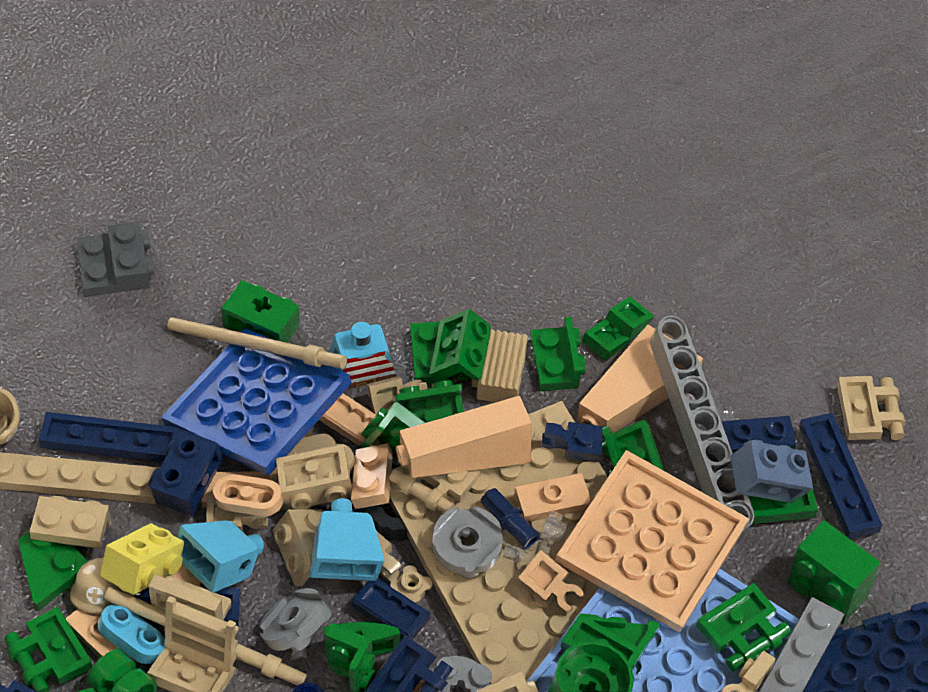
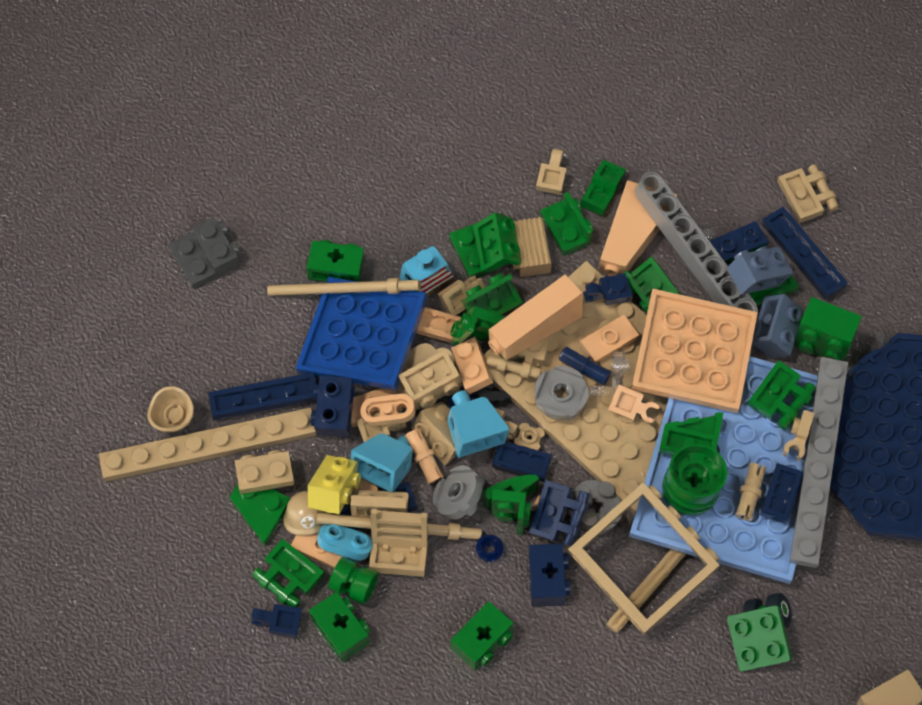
camera: 15 degrees left, 10 degrees up
(272, 565) = (424, 456): none -> light nougat pin
(561, 296) = (551, 175): none -> tan plate
(770, 548) = (777, 326): none -> sand blue brick

